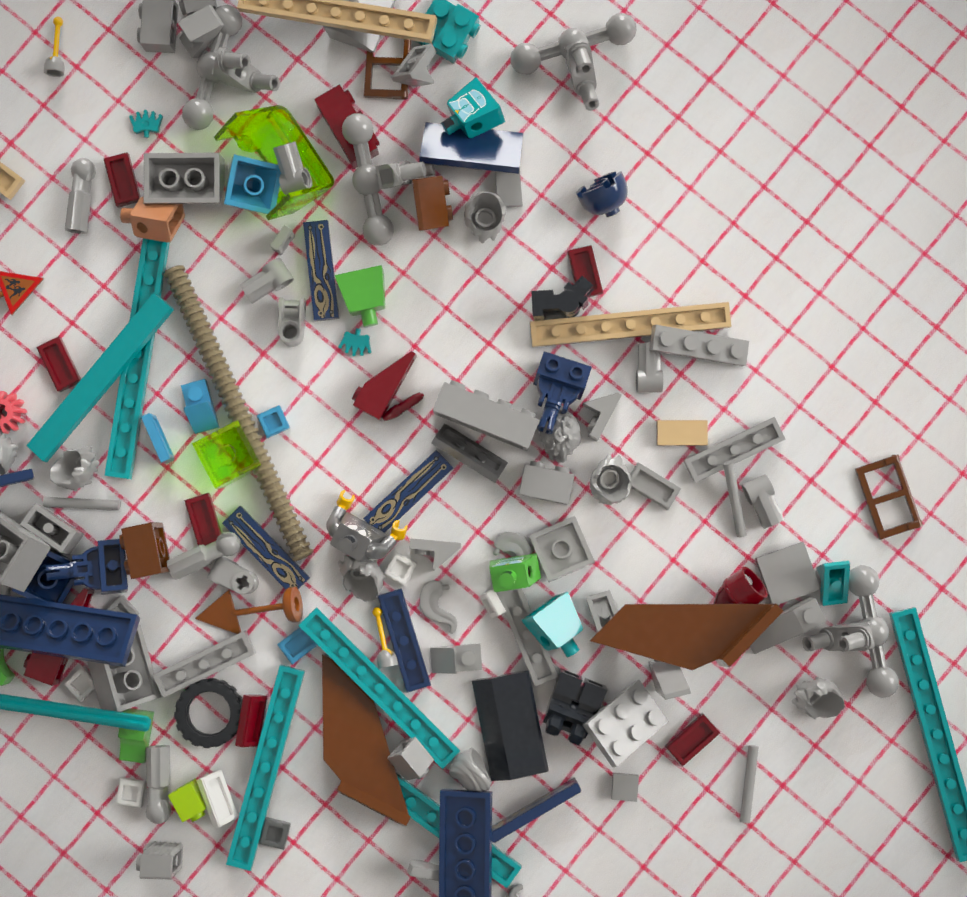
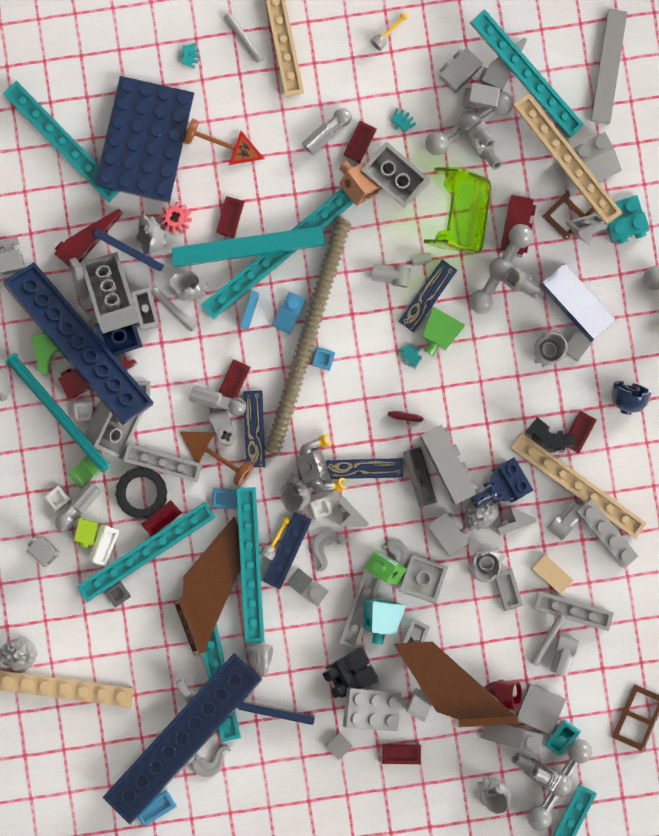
camera: 45 degrees right, 0 degrees up
(100, 567) = (153, 357): dark blue brick -> none
(145, 550) = (187, 369): reddish brown slope -> none
(226, 455) = (281, 355): clear neon green slope -> none
(252, 184) = (432, 213): dark azure slope -> none
(291, 315) = (387, 307): light grey piece -> none
(293, 174) = (460, 229): light grey piece -> none
(380, 390) = (399, 396): dark red slope -> none
(411, 759) = (232, 621): light grey brick -> none
(431, 202) = (525, 314): reddish brown slope -> none
(473, 111) = (597, 282): teal torso -> none
(492, 603) = (356, 574): white tile -> none
(510, 726) = (304, 652): black slope -> none
(749, 784) = (411, 808): light grey bar -> none

